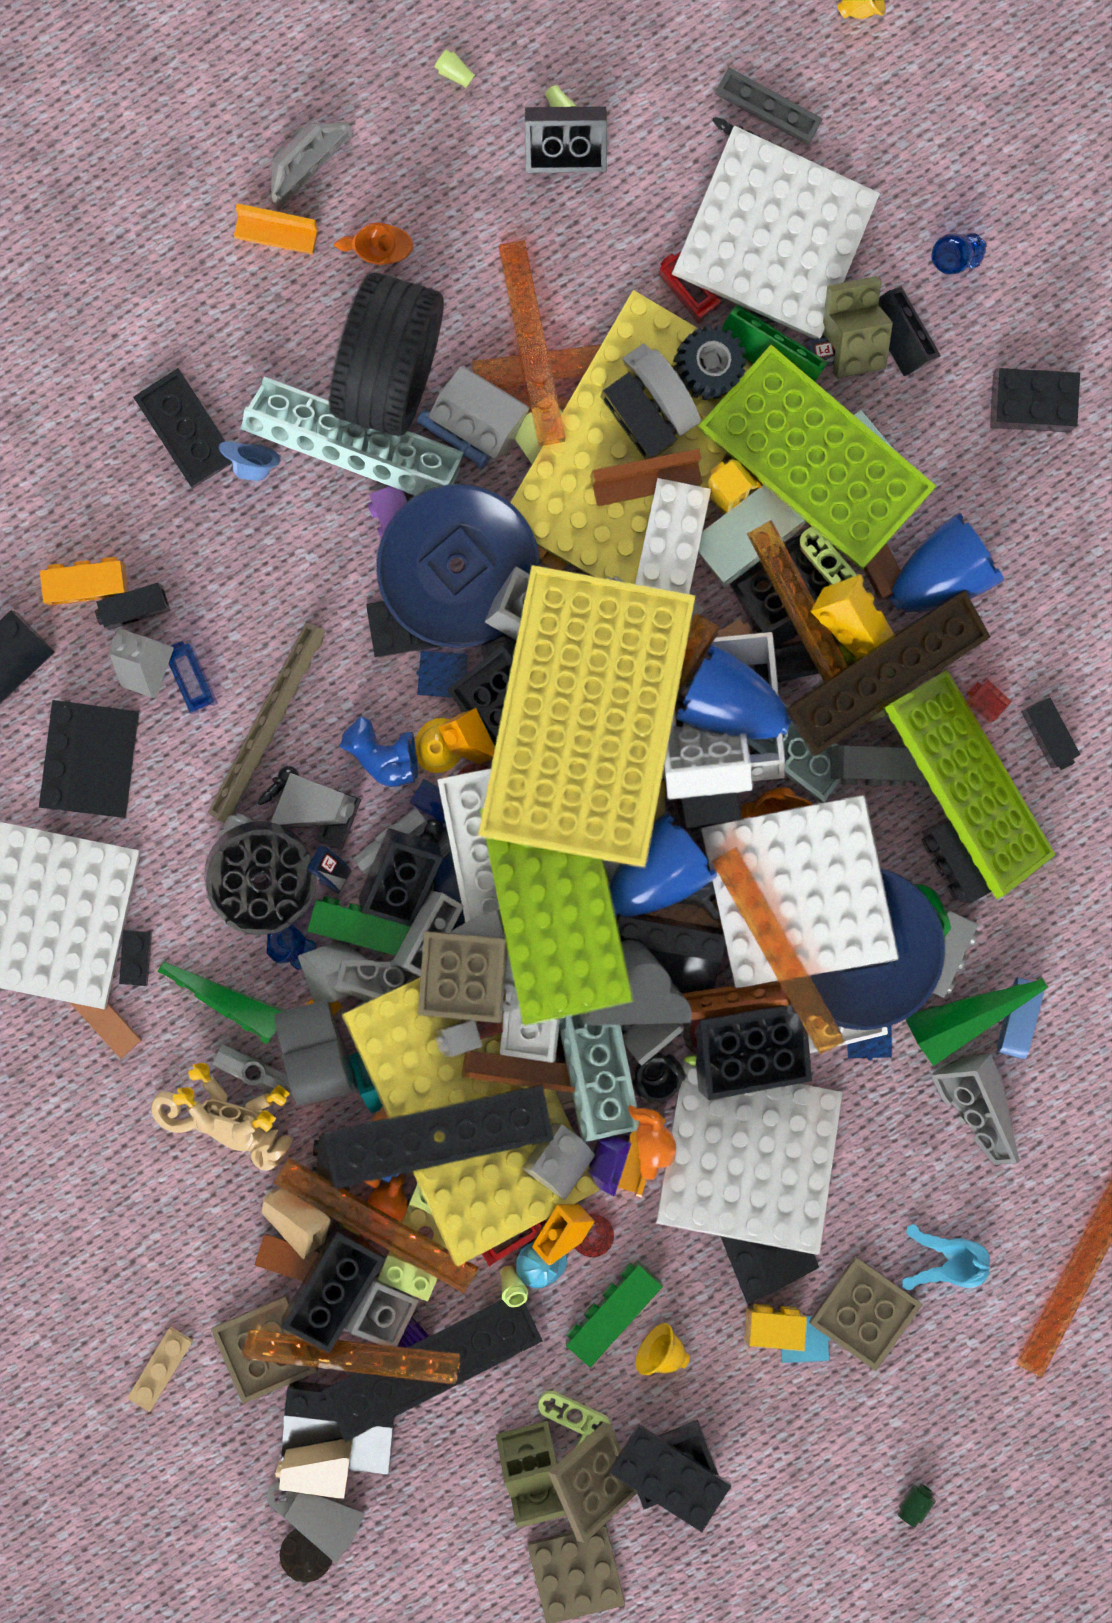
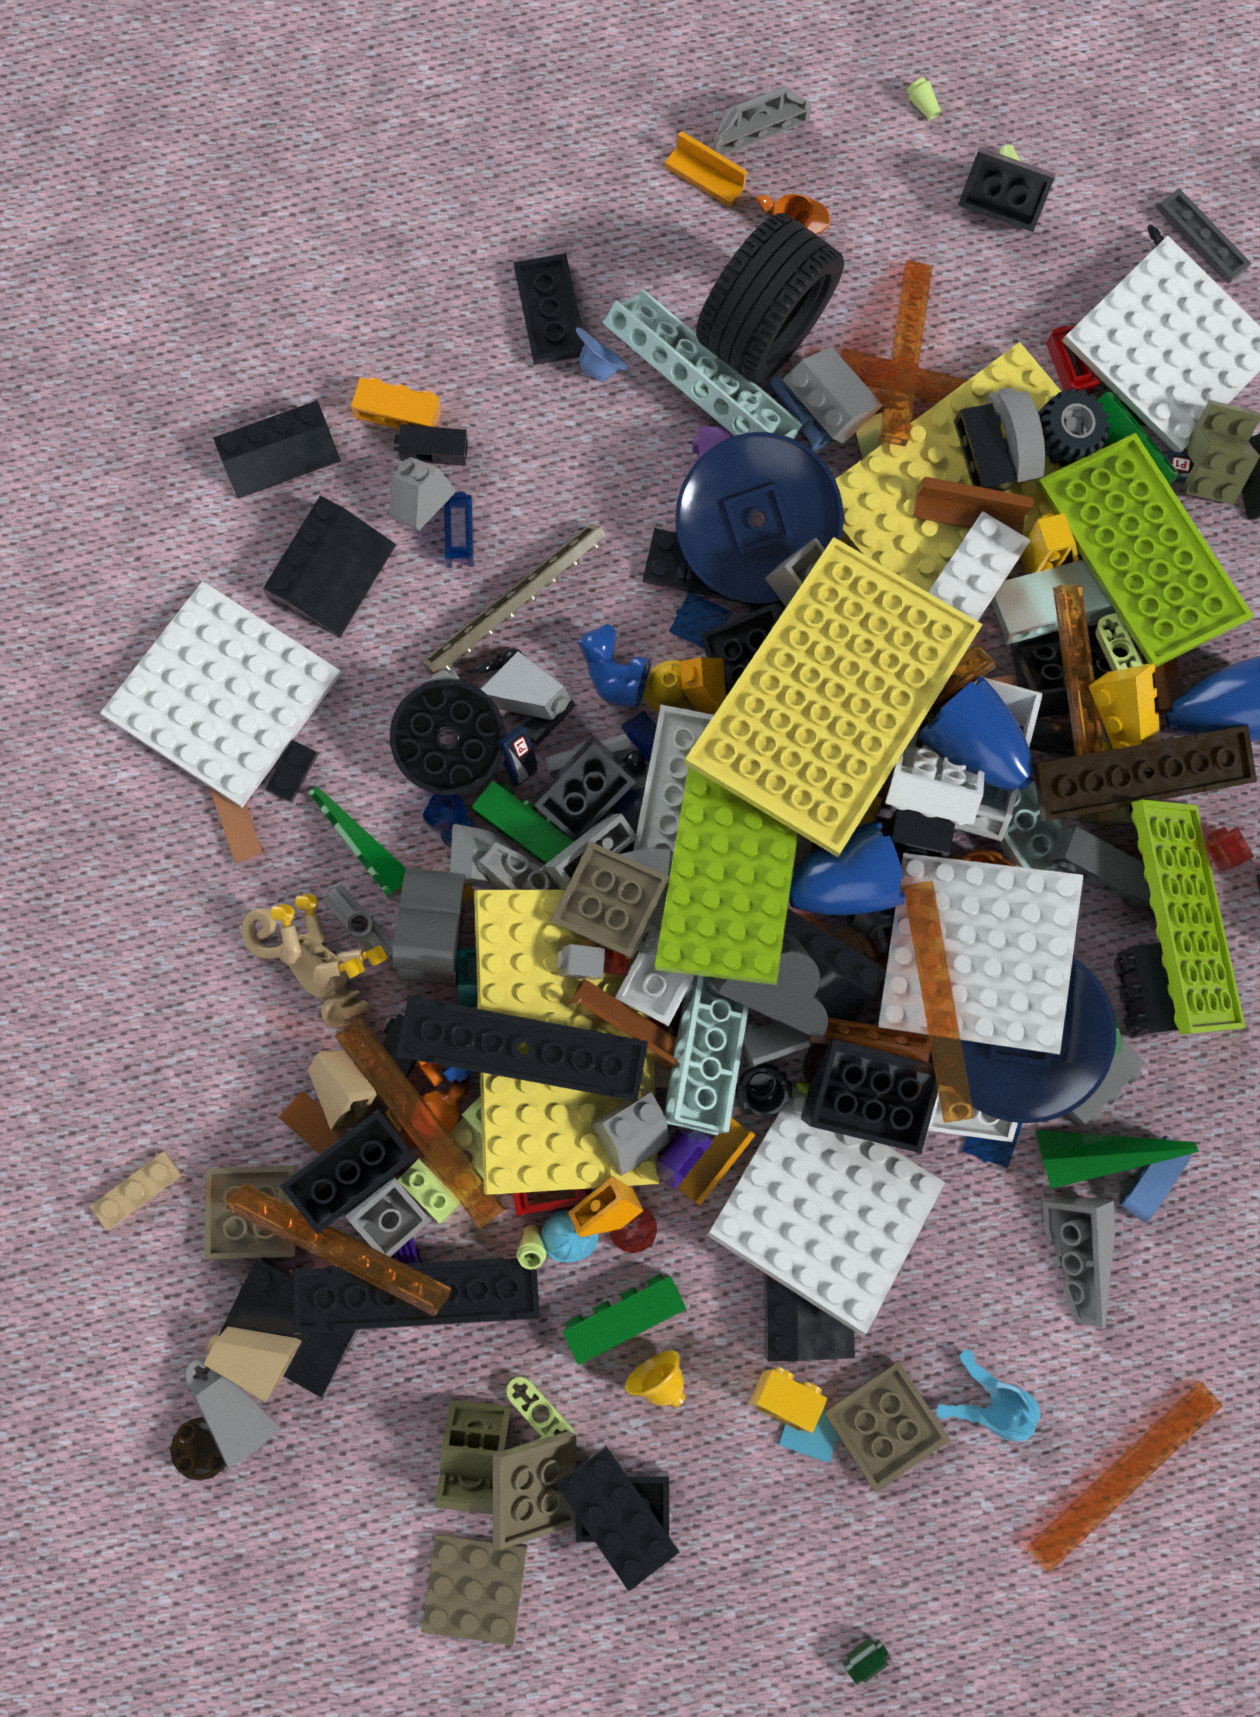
camera: 20 degrees right, 10 degrees down
(654, 1141) = (738, 1149): orange hair -> none

